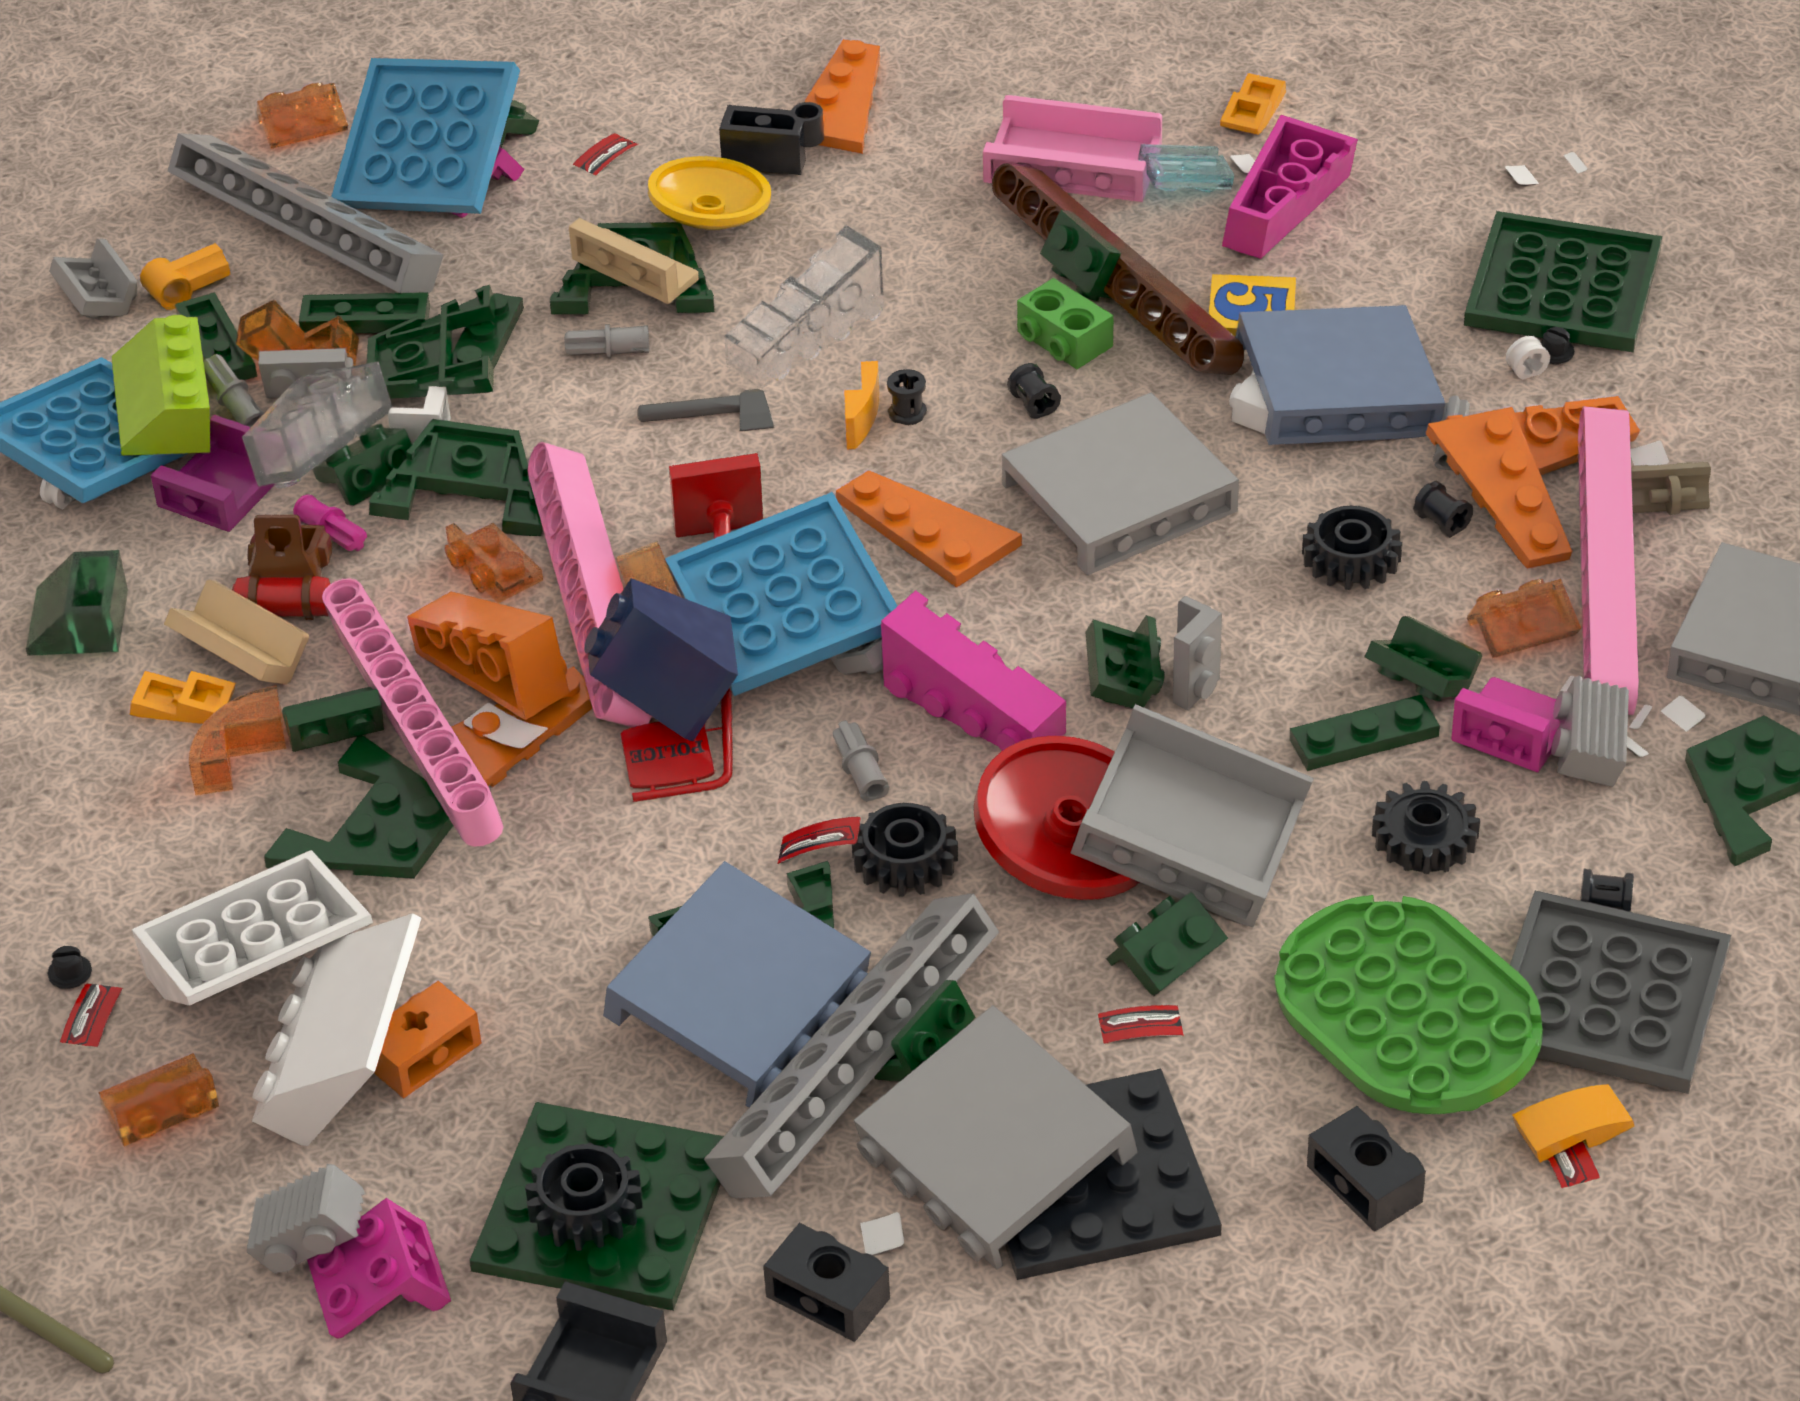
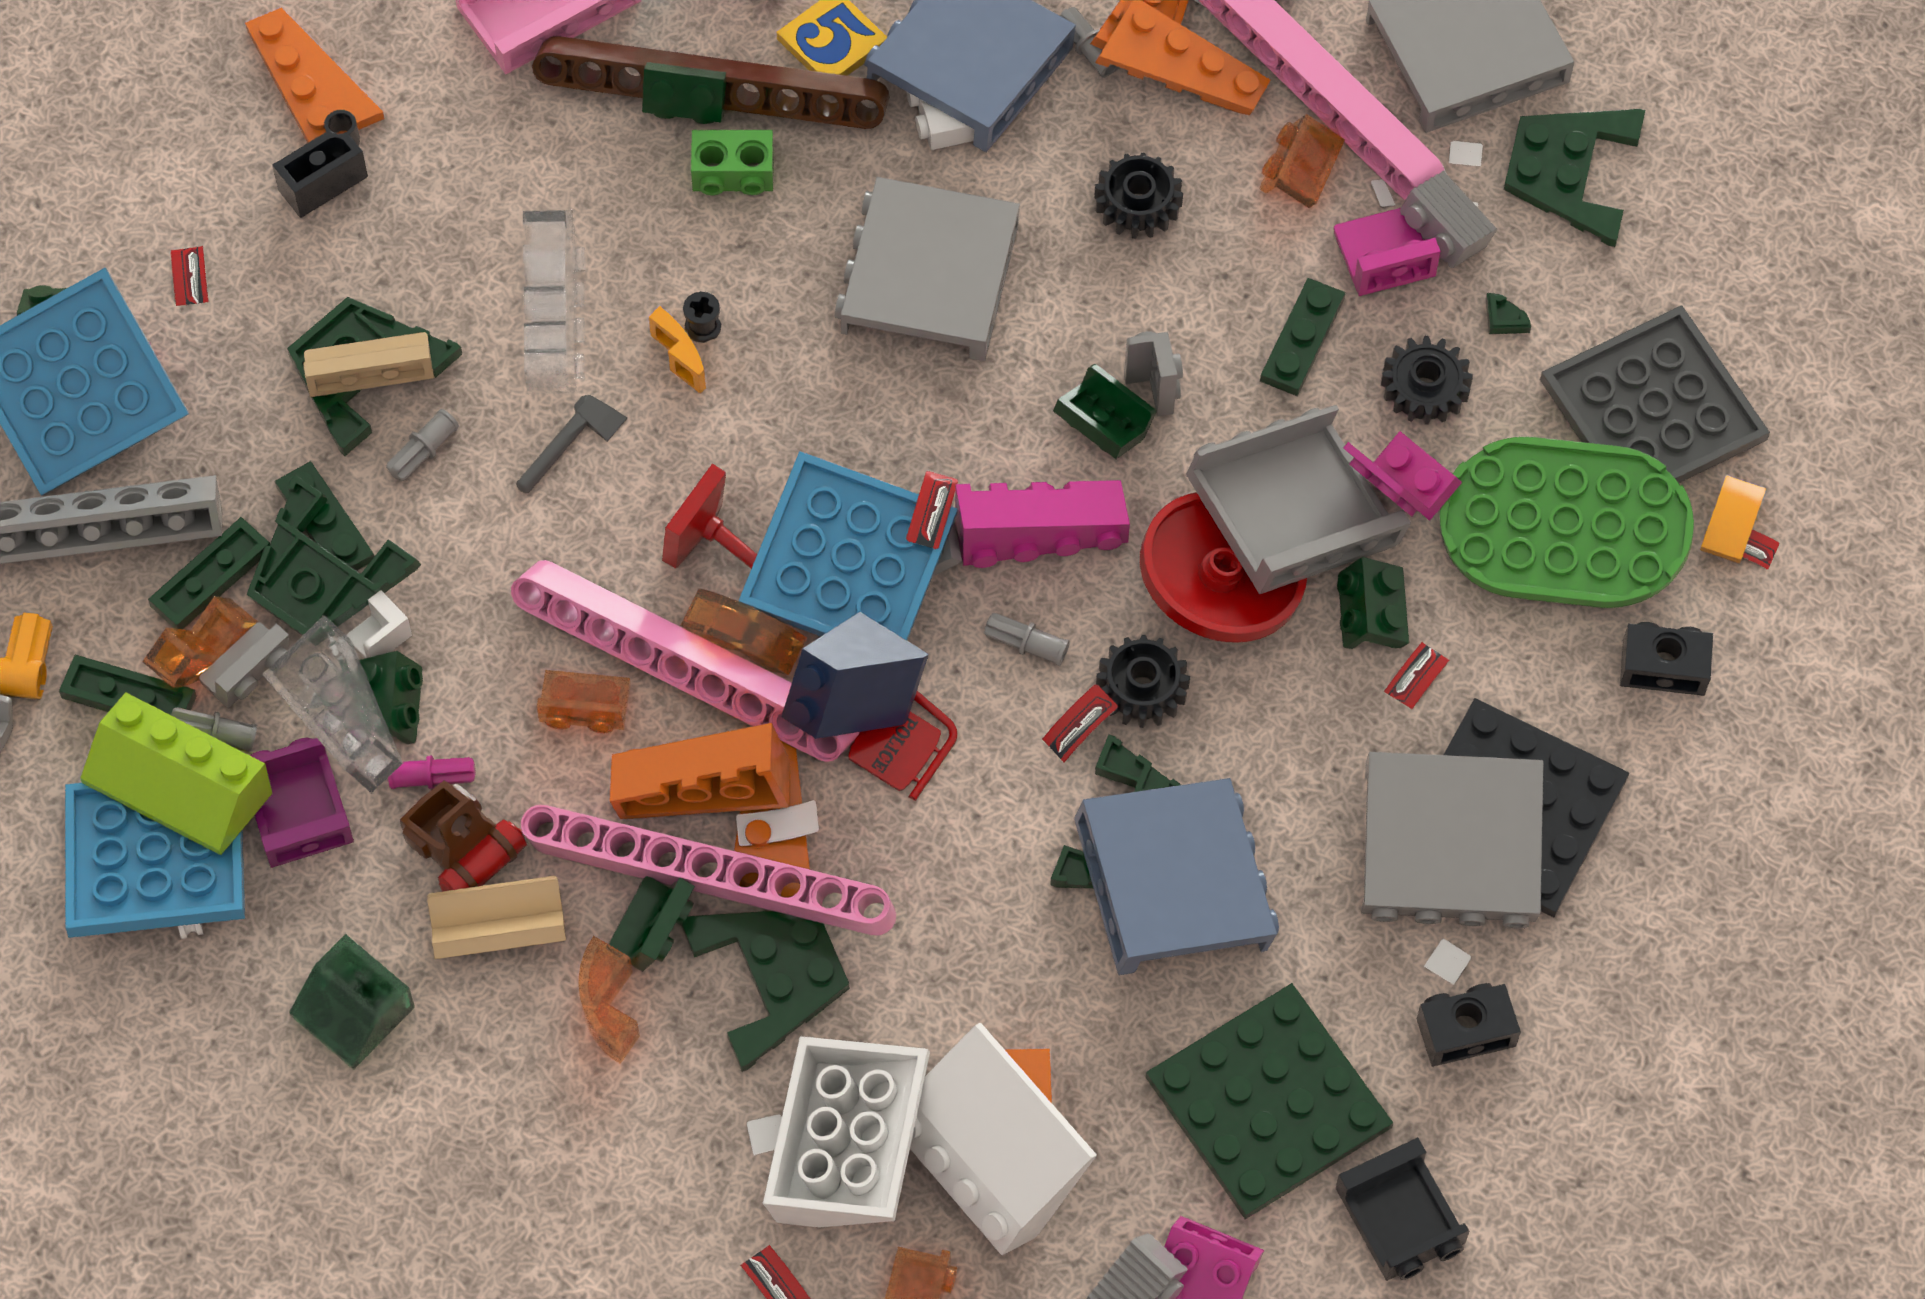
camera: 50 degrees left, 20 degrees up
(68, 968) = (722, 1267): black piece -> none
(179, 700) = (514, 1003): light orange slope -> none
(464, 462) = (468, 634): dark green wing -> none
(584, 1195) = (1277, 1130): black gear -> none
(709, 192) = (344, 253): yellow dish -> none
(848, 1048) = (1308, 865): light grey brick -> none
(878, 601) = (932, 510): none -> sticker
(927, 1031) = (1321, 808): dark green bracket -> none
(929, 529) = (847, 412): orange wing -> none
(1034, 387) = (779, 237): black bush -> none
(1303, 879) = (1407, 476): none -> dark pink bracket
(1426, 658) = (1285, 248): dark green bracket -> none
(1443, 509) = (1156, 112): black bush -> none
(1562, 840) = (1505, 316): none -> dark green tile
(1607, 890) = (1569, 334): black bush -> none

